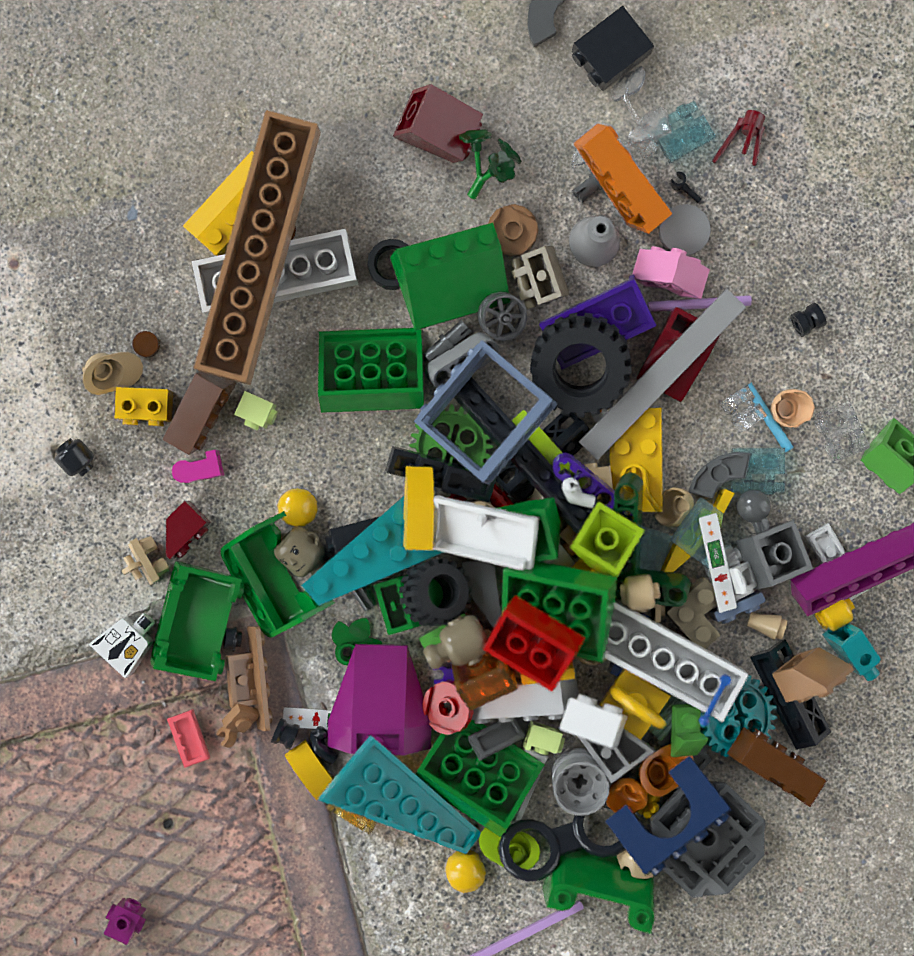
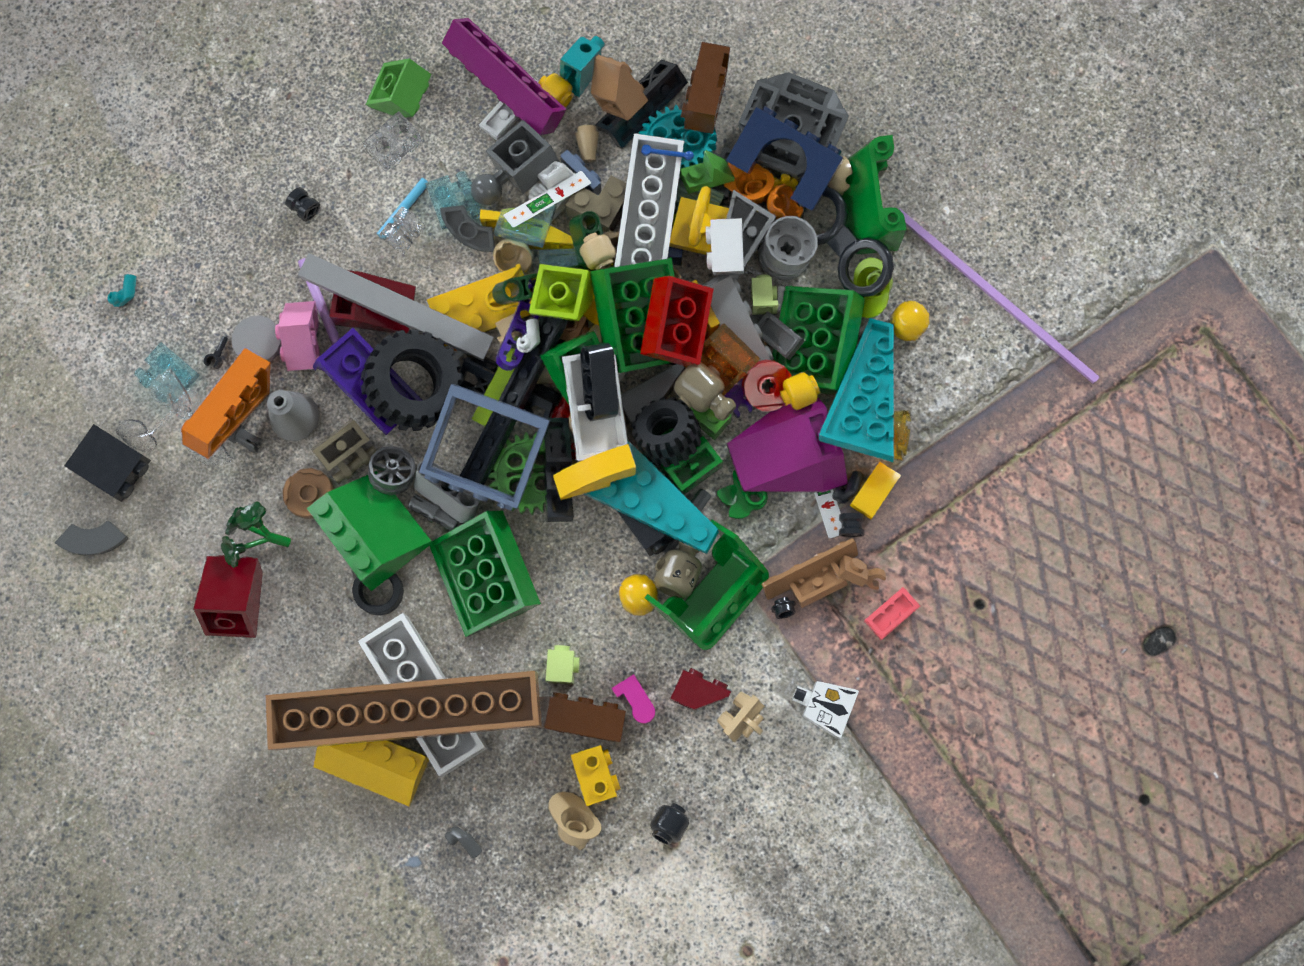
camera: 105 degrees left, 10 degrees down
(125, 920) = (1082, 606): magenta brick -> none
(131, 267) = (467, 841): none -> dark grey arm
(146, 344) = (535, 797): reddish brown tile -> none
(194, 621) = (780, 648): green windscreen -> none
(427, 736) = (800, 391): none -> yellow head
(501, 545) = (599, 381): none -> black beam
(751, 127) = (142, 314): dark red plant -> none
(780, 118) = (126, 294): none -> teal arm
(792, 408) = (386, 189): light nougat hair -> none

